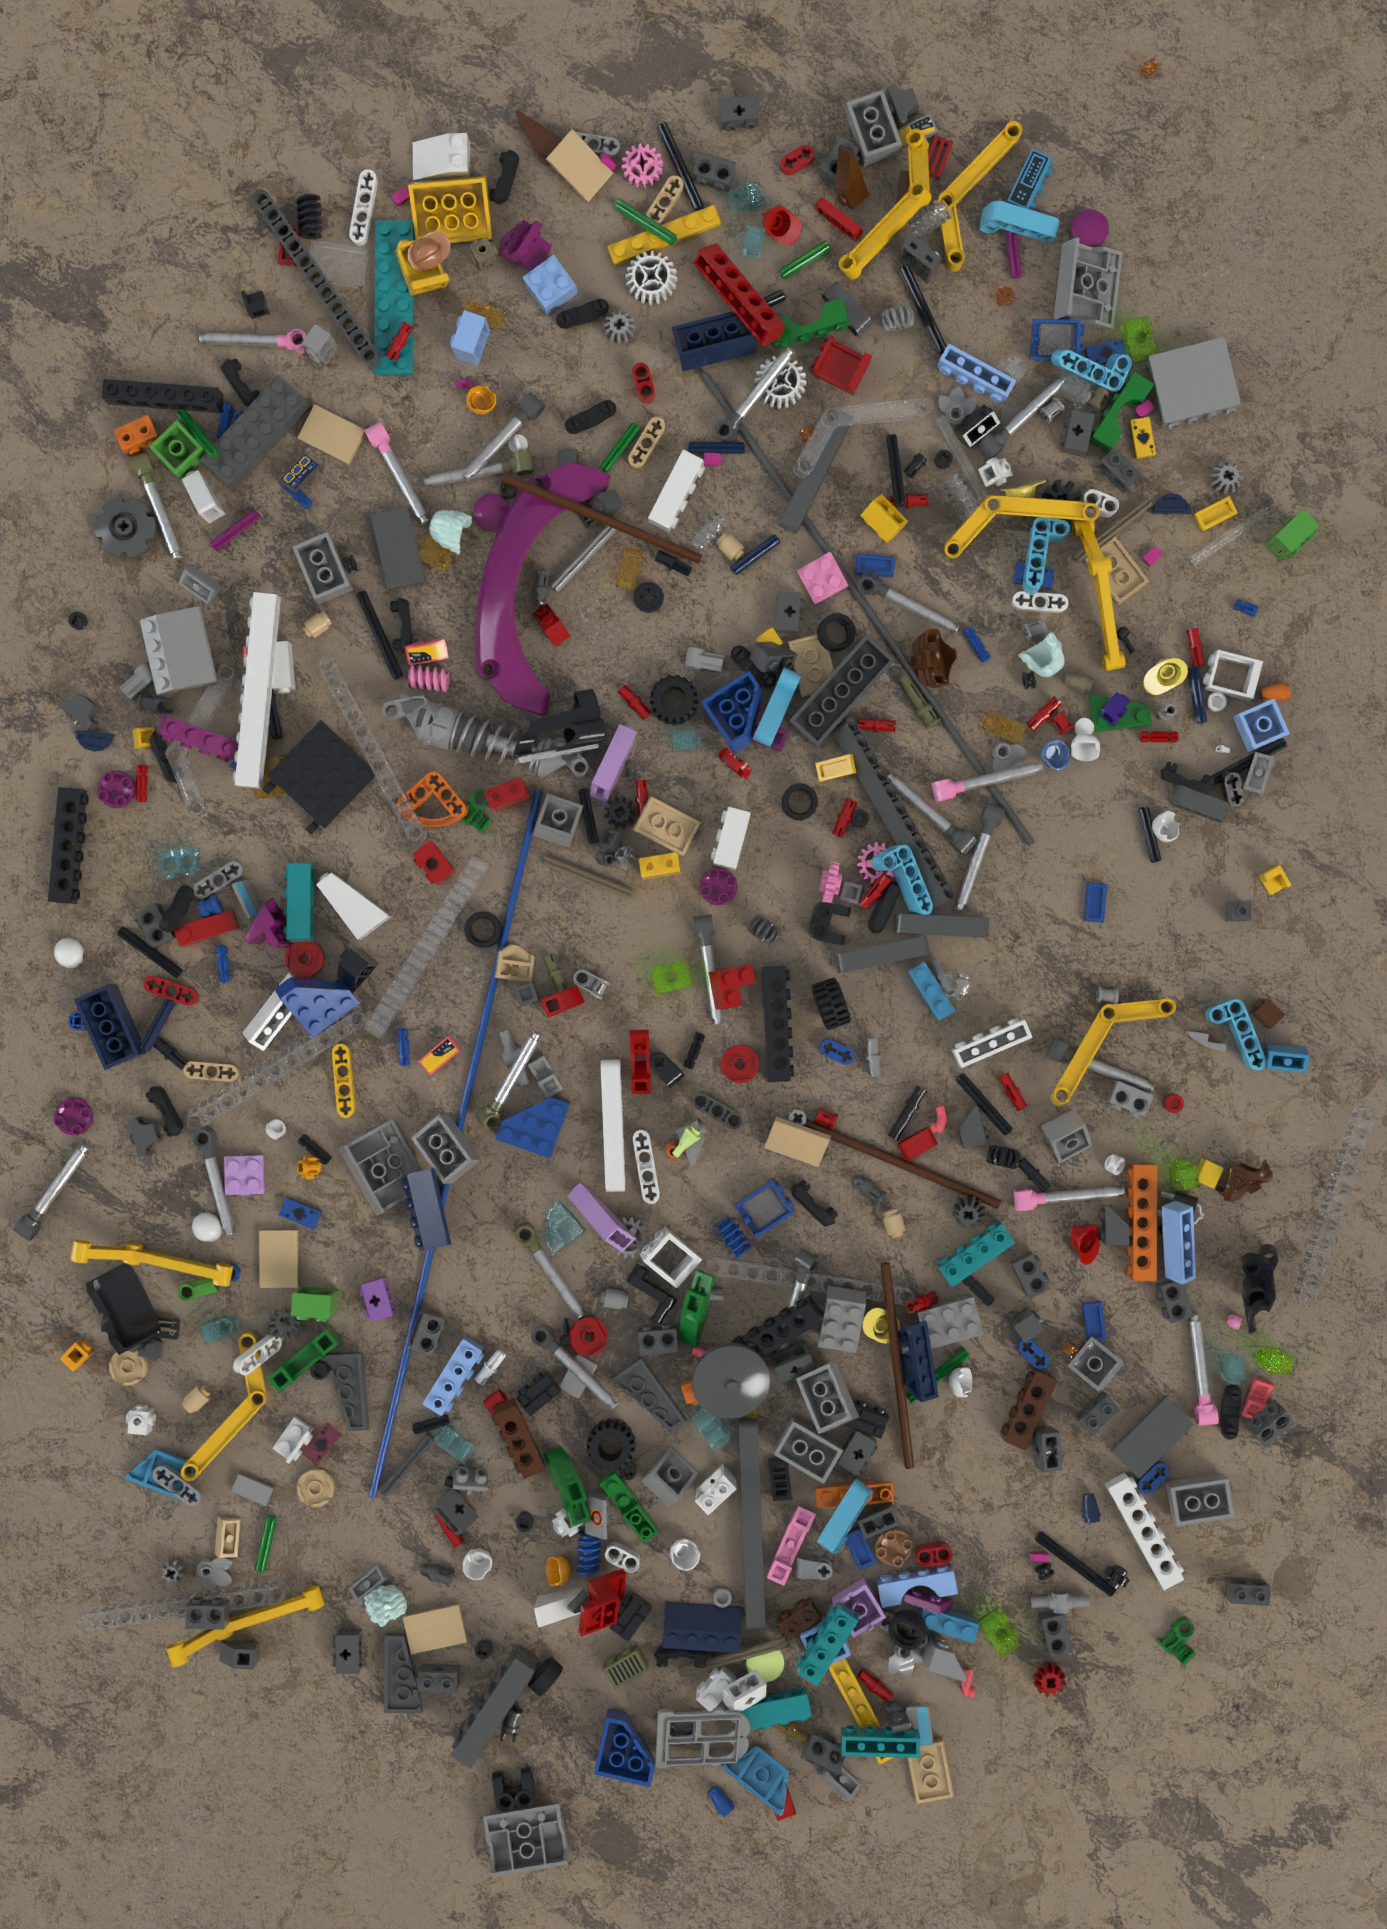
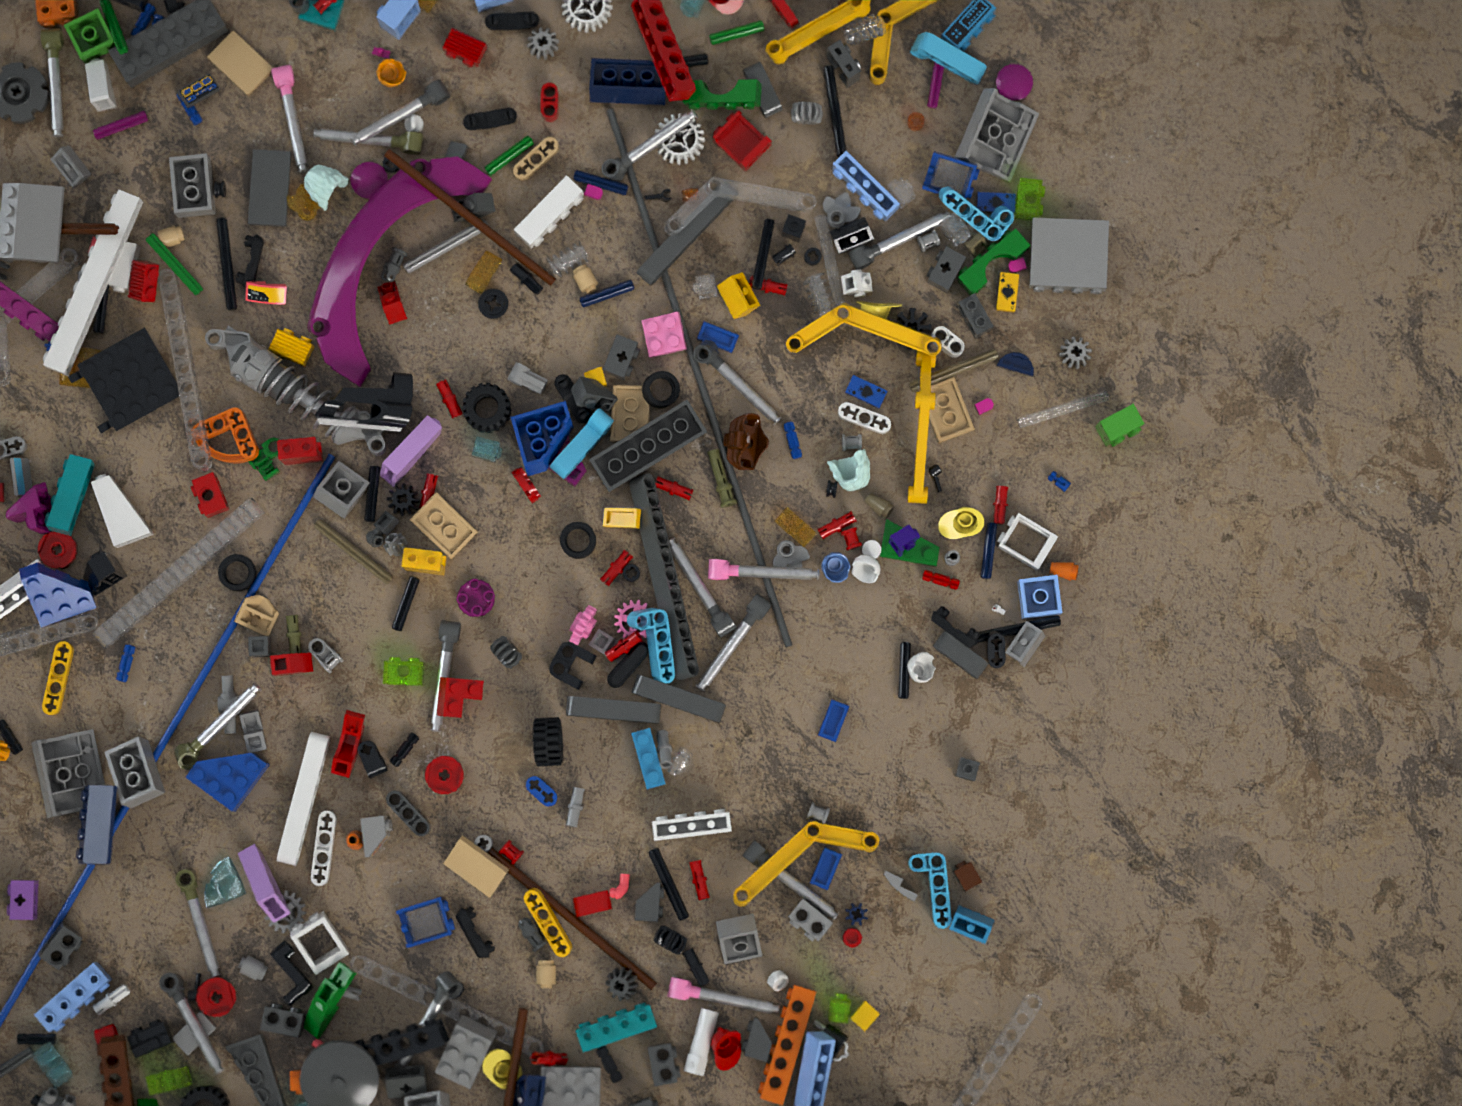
camera: 15 degrees right, 5 degrees down
(237, 639) = (89, 228): none -> reddish brown axle
(305, 675) = (143, 280): none -> red brick
(329, 650) = (174, 264): none -> green axle
(428, 679) = (259, 319): bright pink piece -> none
(439, 1055) = (157, 681): slope -> none
(467, 697) = (291, 347): none -> yellow brick
(544, 354) = (464, 47): none -> red brick
(568, 1427) = (168, 1080): none -> clear neon green brick
(652, 915) = (405, 603): none -> black axle
(689, 1137) = (372, 827): yellowish green cone -> none
(730, 838) = (500, 555): white brick -> none
(733, 1236) = (385, 940): blue piece -> none
(774, 1073) = (497, 698): black brick -> none
(779, 443) = (659, 196): none -> black hand
(849, 518) = (705, 286): none -> clear brick
(880, 1174) = (550, 921): none -> yellow beam
(907, 1113) = (596, 866): black pin -> none
(918, 436) = (793, 228): none -> black brick
(1039, 555) = (875, 373): medium azure beam -> none
(1060, 1243) = (697, 1058): none -> white piece
(1129, 1045) = (825, 868): none -> blue tile
(1176, 1084) = (857, 919): none -> dark blue gear
(1215, 514) = (1056, 384): yellow tile -> none
(1216, 702) = (1005, 562): white tile -> none
(1243, 1179) = (896, 1031): reddish brown piece -> none
(1274, 880) = (1011, 750): yellow panel -> none

